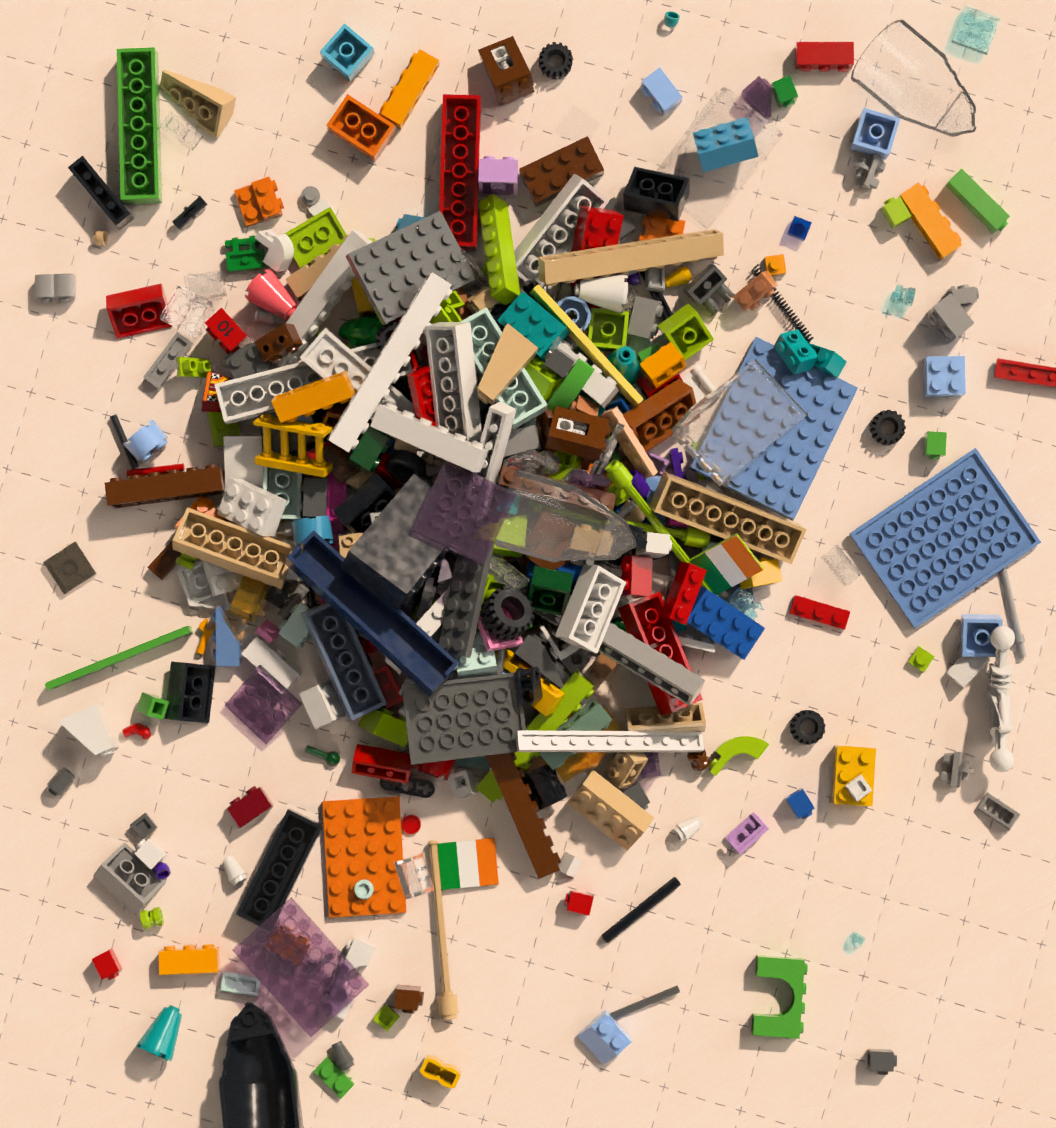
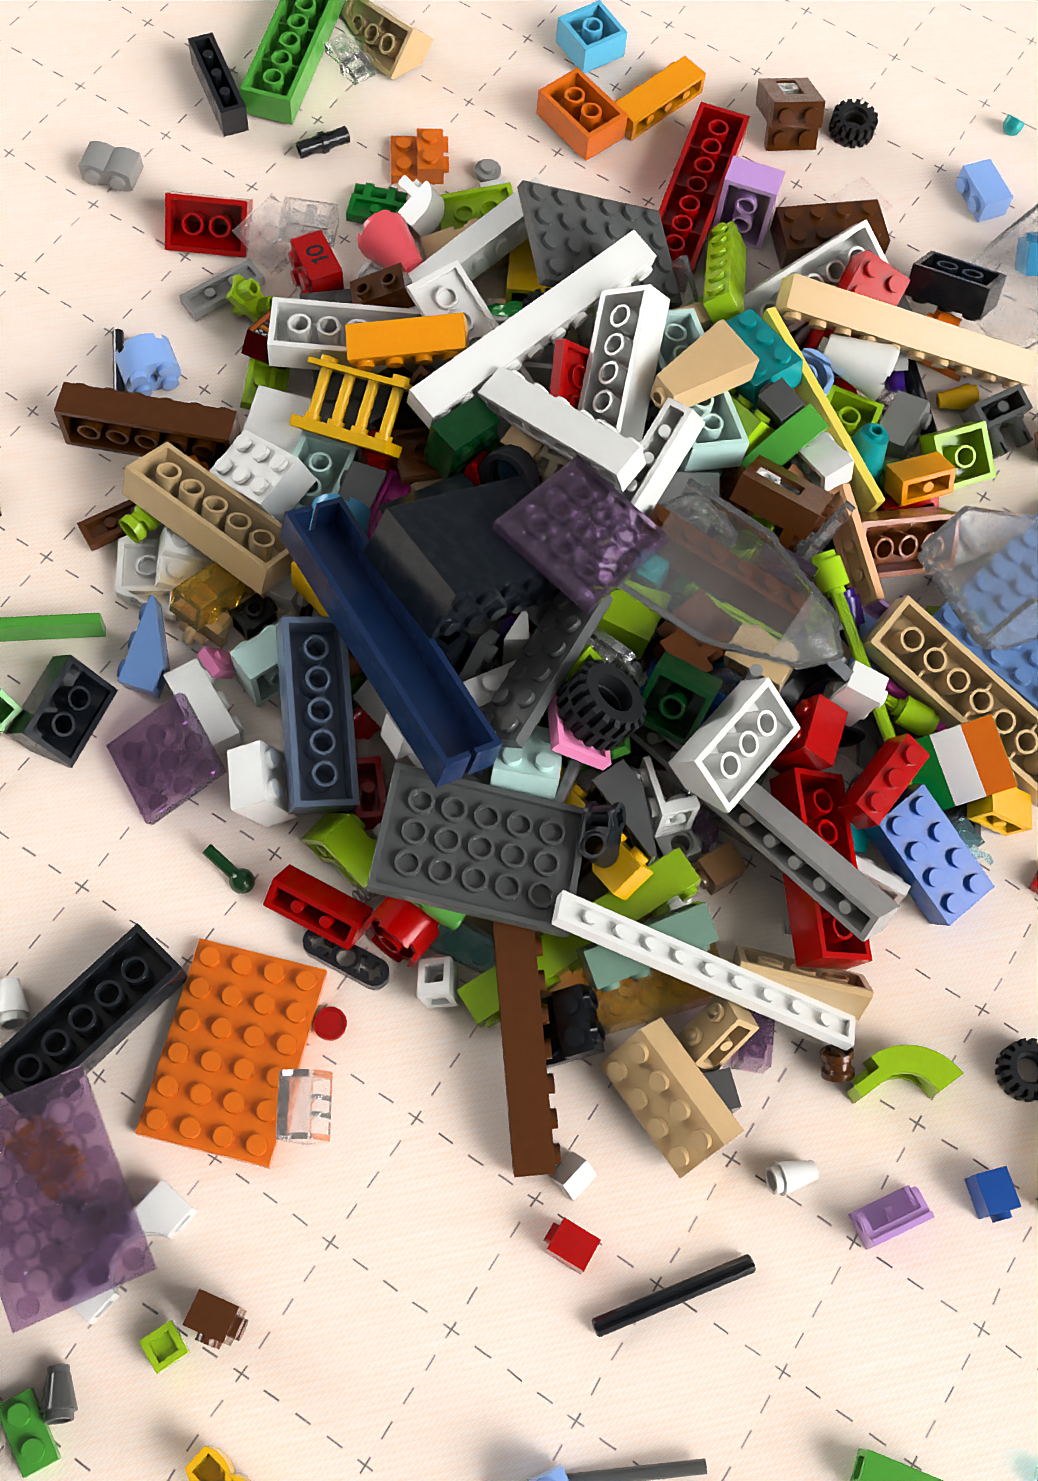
camera: 10 degrees right, 20 degrees down
(100, 237) = (195, 135): tan hinge -> none
(205, 637) = (120, 645): light orange bar -> none
(250, 806) = (80, 909): dark red brick -> none
(363, 889) = (211, 1100): light aqua tile -> none
(453, 867) = (378, 1117): flag -> none
(655, 279) = (927, 382): light grey tile -> none

